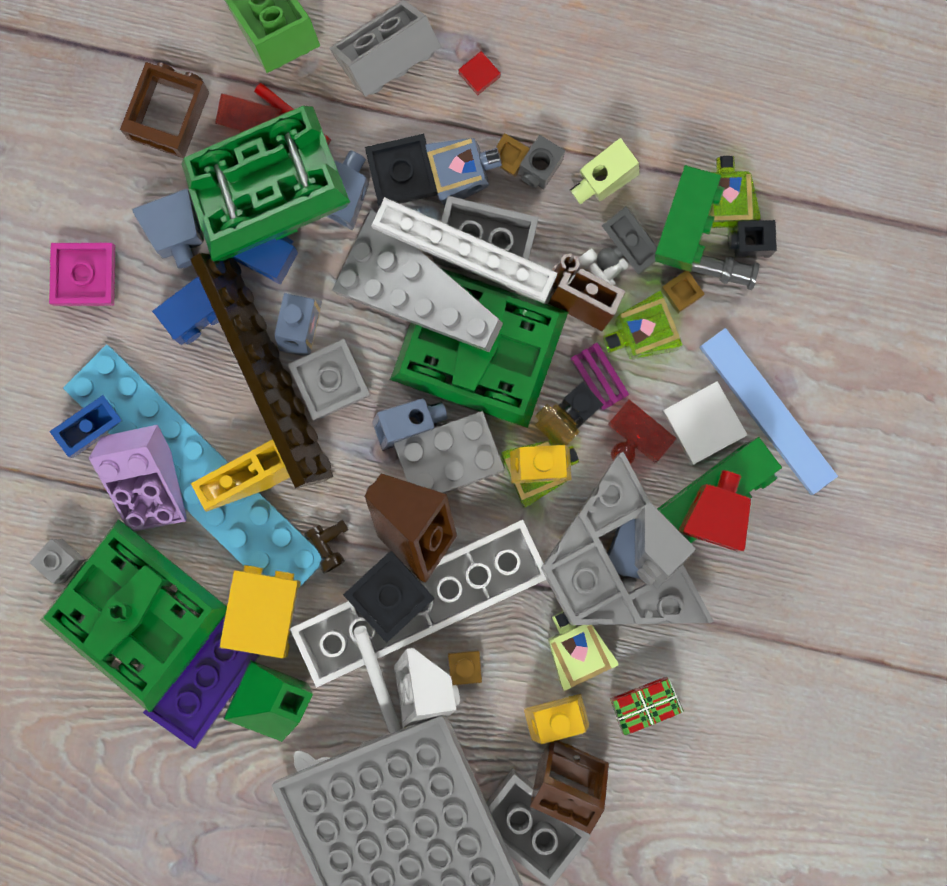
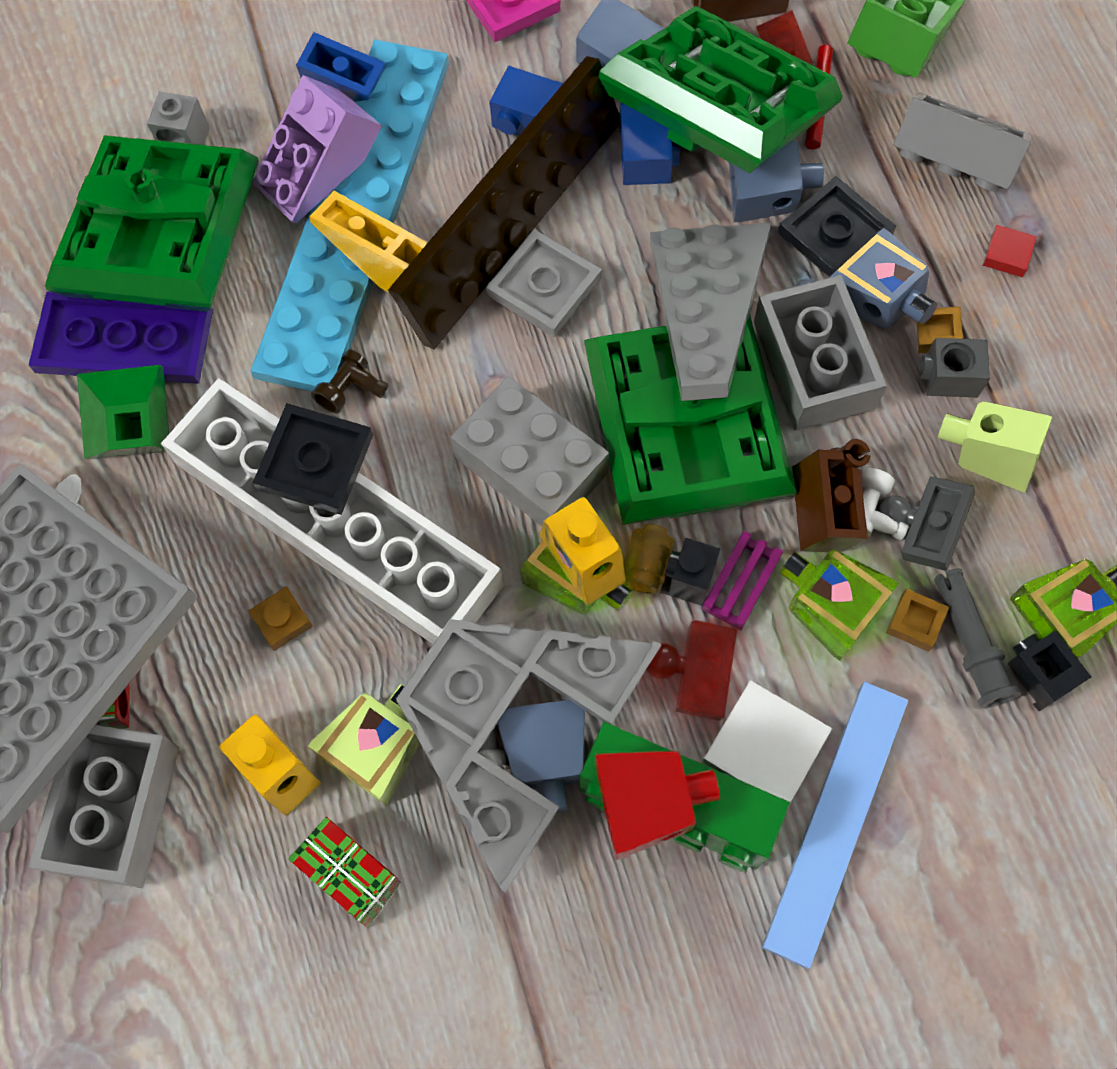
camera: 65 degrees right, 15 degrees down
(260, 612) = (221, 338): yellow panel -> none
(297, 323) = (587, 210): sand blue torso -> none
(377, 679) = (209, 503): white bar -> none
(394, 423) = (546, 375): sand blue torso -> none
(411, 522) = (420, 441): reddish brown slope -> none
(423, 689) = (211, 560): white slope -> none
(464, 250) = (789, 328): white tile -> none
(566, 802) = (148, 816): reddish brown window -> none
(658, 547) = (555, 749): light grey slope -> none
(689, 218) = (1013, 559): green brick -> none

